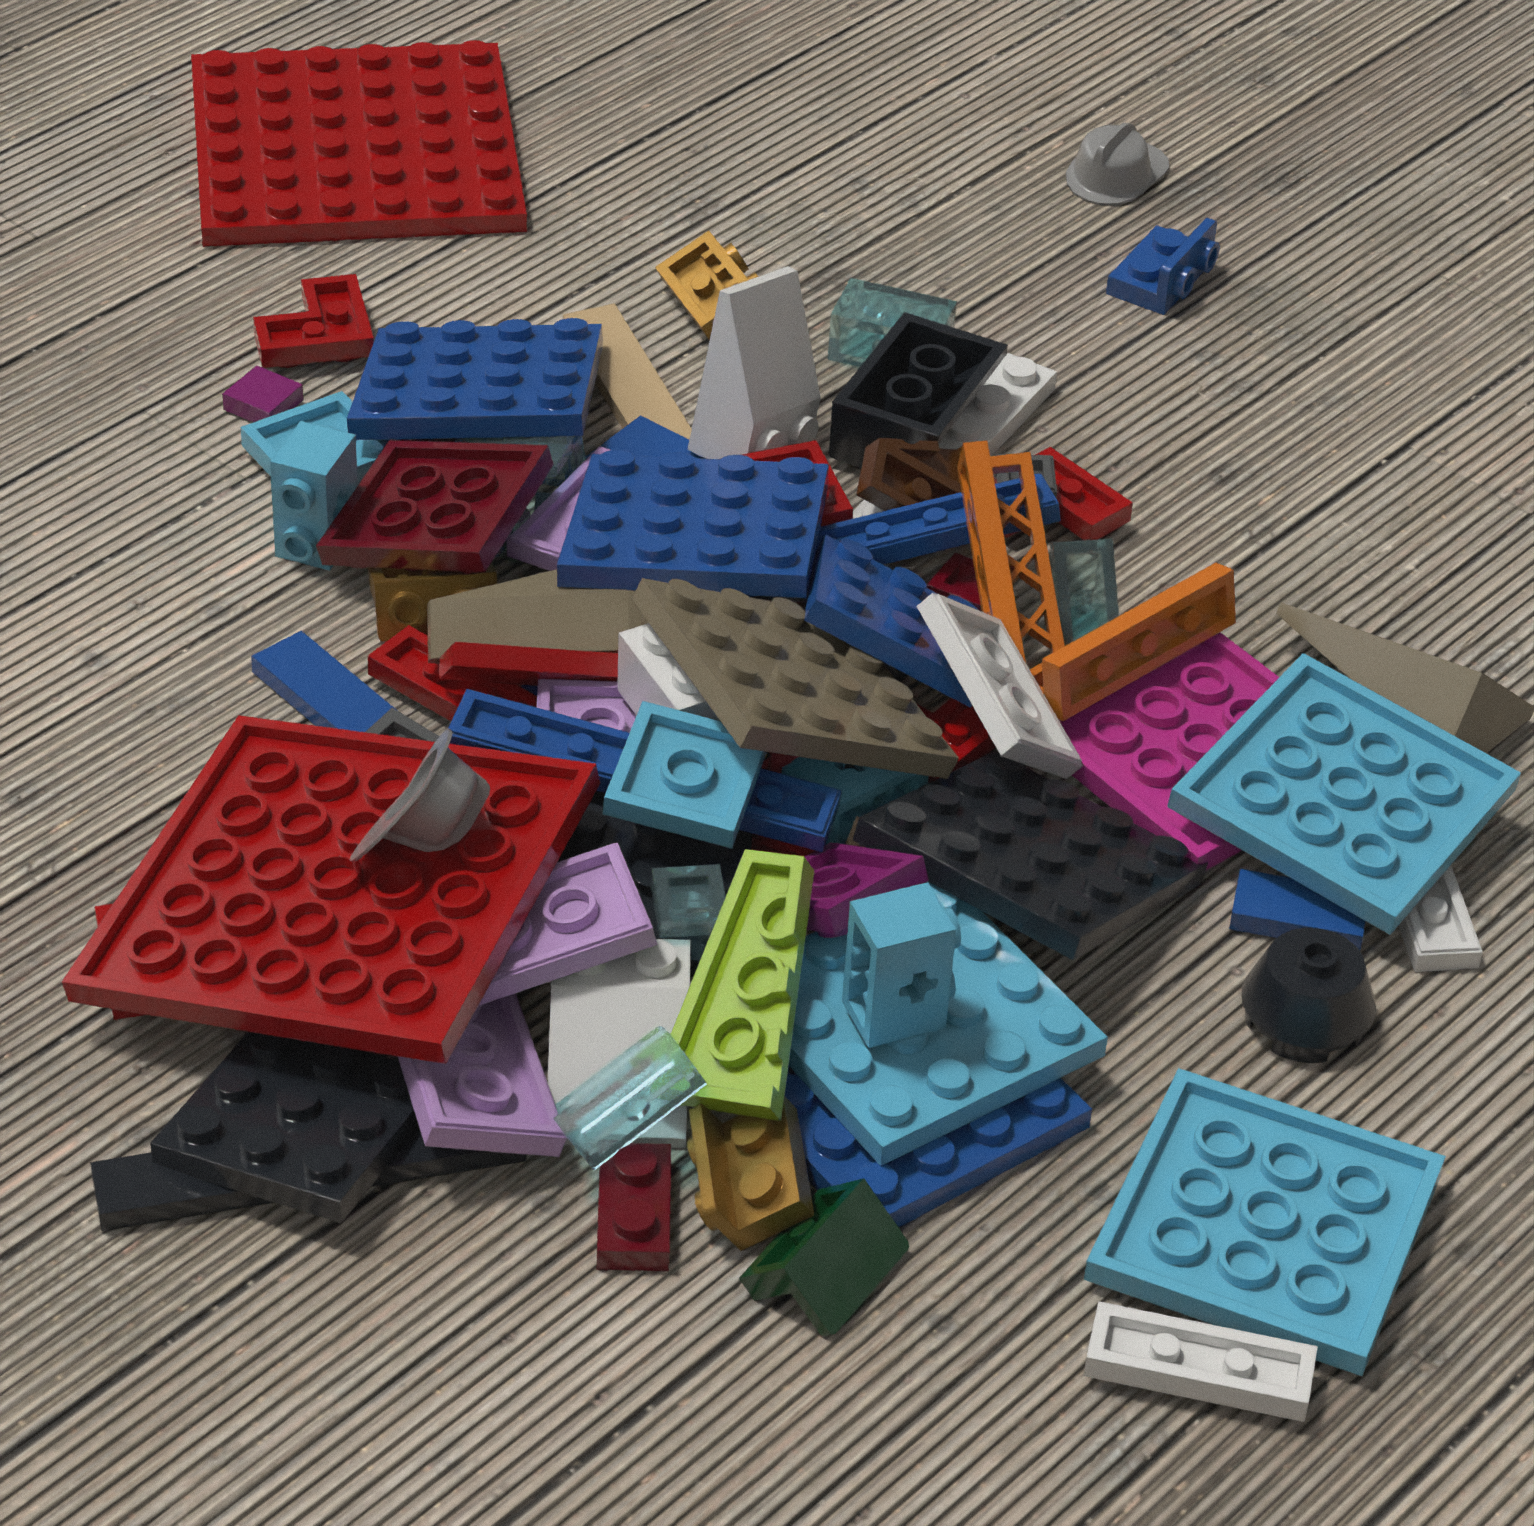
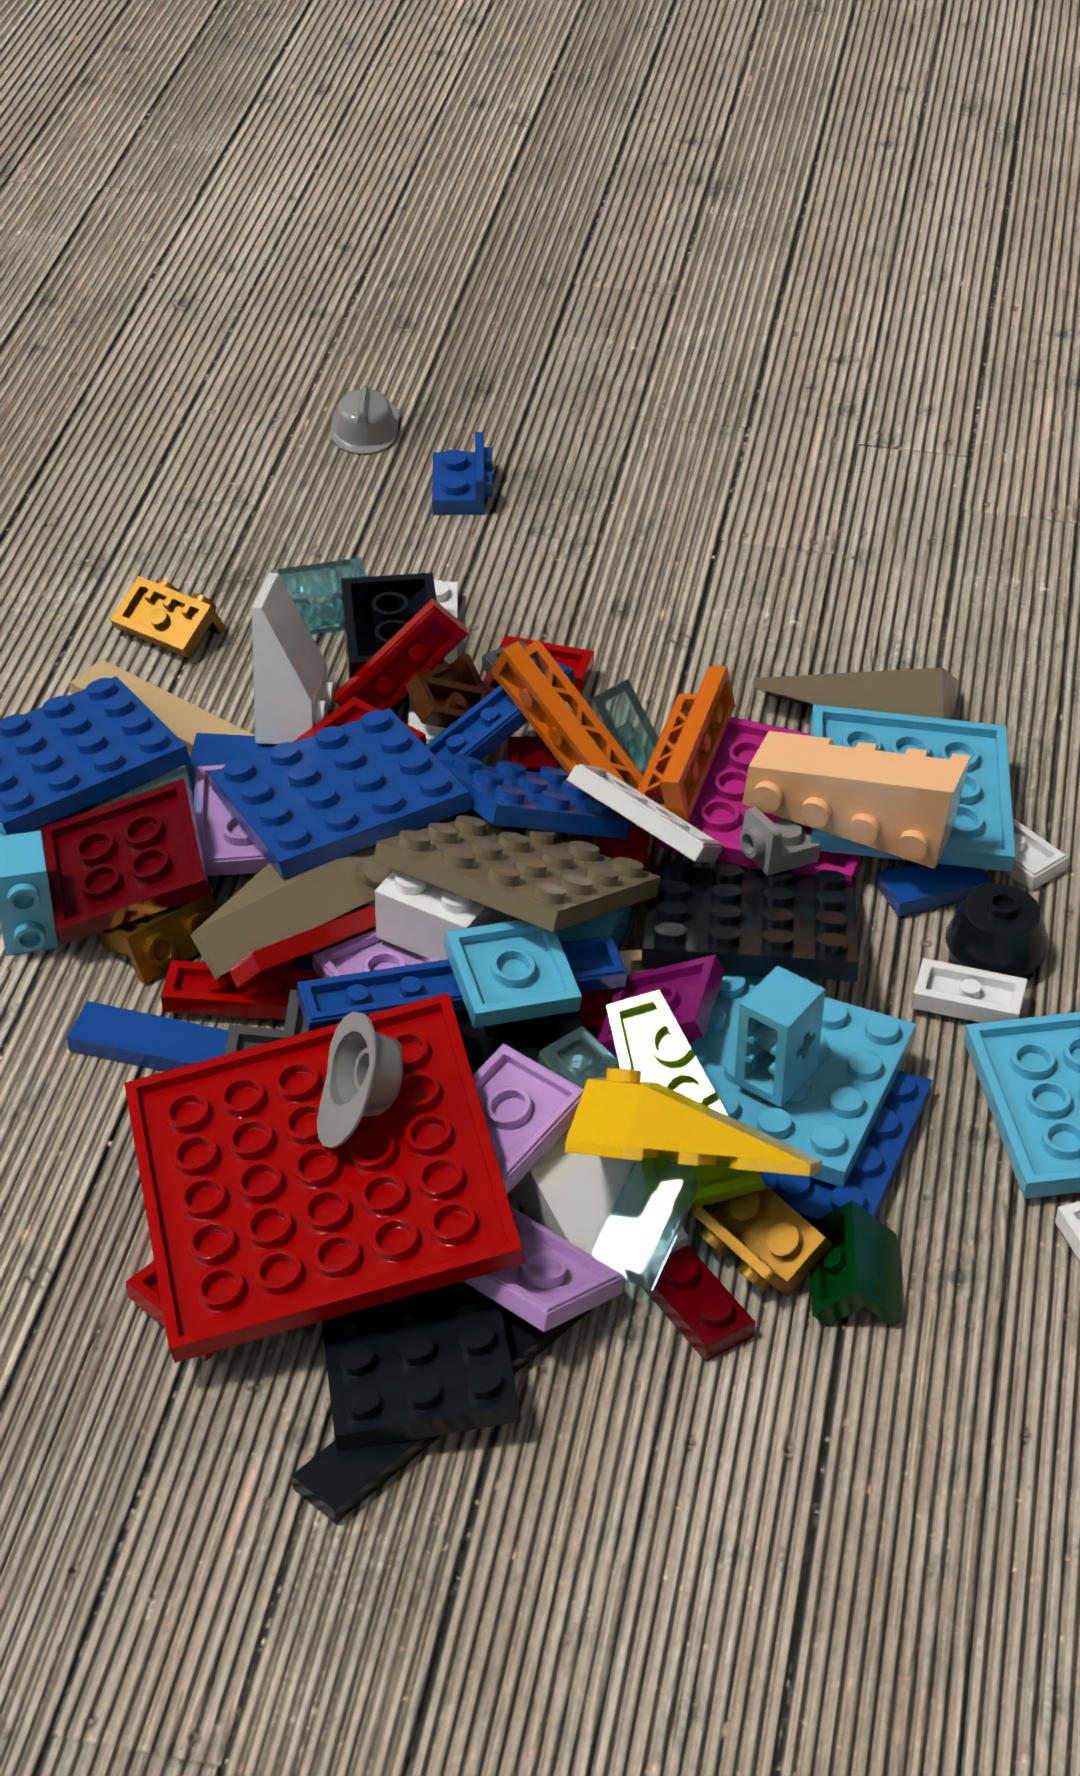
camera: 30 degrees left, 0 degrees up
(699, 999) = (646, 1119): none -> yellow wedge
(904, 412) = (414, 648): none -> red tile
(1129, 785) = (776, 845): none -> light grey bracket
(1221, 1039) = (968, 992): none -> white plate
(1245, 765) = (860, 793): none -> light nougat wedge

